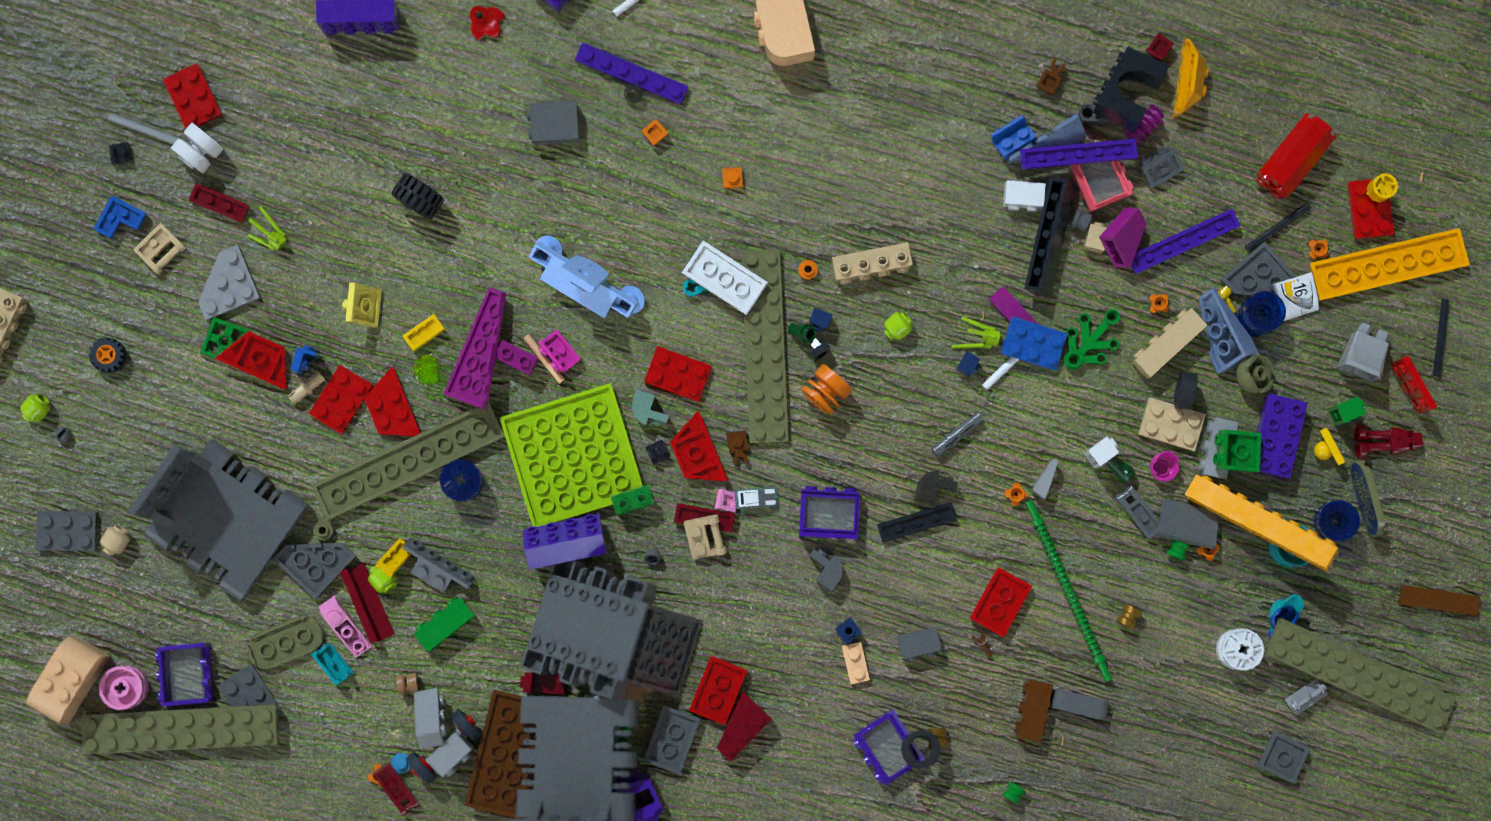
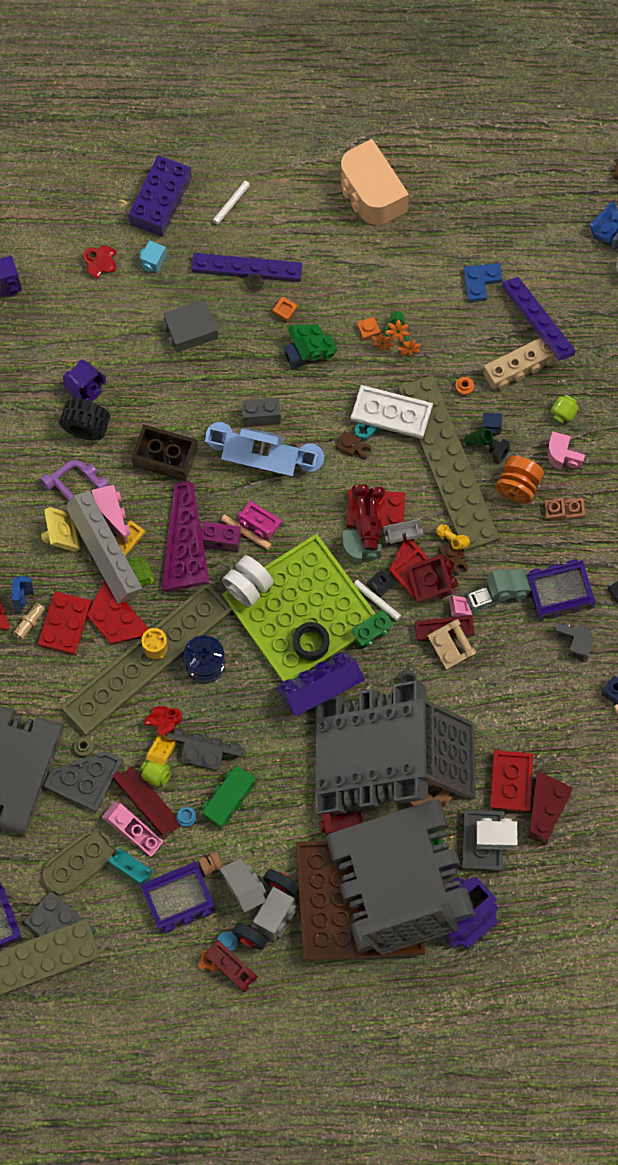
camera: 15 degrees left, 15 degrees down
(368, 708) = (178, 897): none -> window
(397, 337) = (103, 547): none -> light grey brick
(399, 629) = (186, 816): none -> dark azure plate
(403, 527) = (164, 718): none -> red plate
(409, 249) = (88, 471): none -> medium lavender bar
(414, 293) = (108, 503): none -> bright pink slope
(417, 452) = (154, 643): none -> yellow piece
(429, 154) = (84, 381): none -> dark purple brick
(487, 253) = (164, 452): none -> dark brown brick
(520, 420) = (247, 581): none -> white wheel
(539, 35) = (152, 257): none -> medium azure brick
(554, 495) = (307, 627): none -> black tyre
(596, 238) = (261, 412): none -> dark grey brick
(649, 186) = (293, 356): none -> dark blue plate
(649, 468) = (377, 600): none -> white bar
(662, 396) = (368, 526): none -> dark red piece
(669, 179) = (312, 342): none -> green plate
(675, 297) = (351, 444): none -> reddish brown plate
(683, 741) = (496, 834): none -> white brick
(686, 406) = (396, 532): none -> light grey hinge
(707, 467) = (432, 578): none -> dark red plate
(745, 435) = (457, 542): none -> yellow bar
(761, 182) = (398, 328): none -> orange plant
(781, 494) = (509, 584): none -> sand green brick
(859, 155) = (477, 277): none -> blue plate
(863, 430) = (565, 509): none -> nougat slope
(876, 371) = (559, 454): none -> bright pink brick
(903, 222) = (538, 318): none -> dark purple plate

